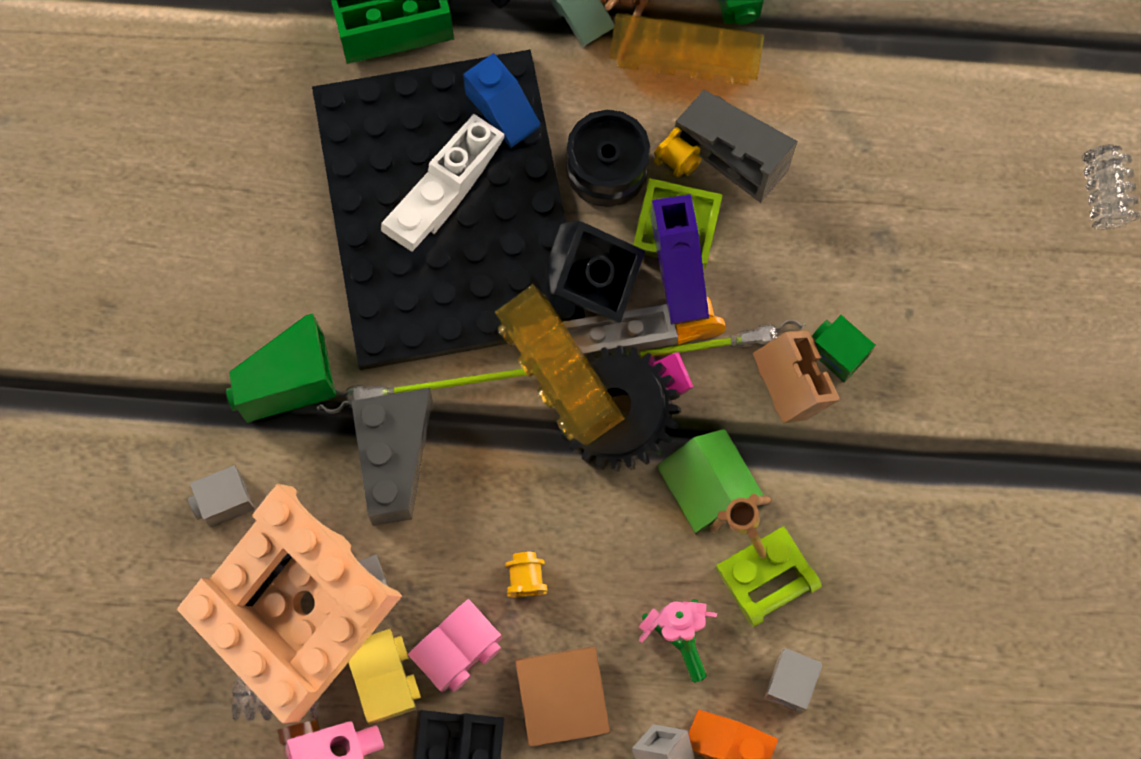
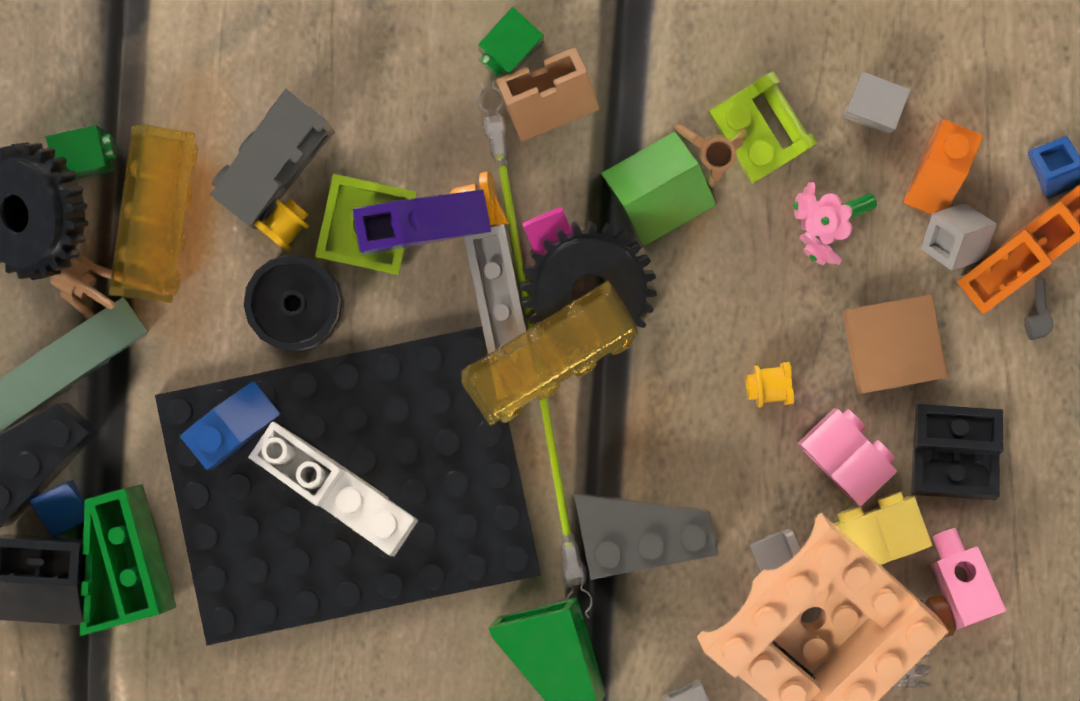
camera: 85 degrees left, 15 degrees up
(593, 269) = (435, 318): black slope -> none

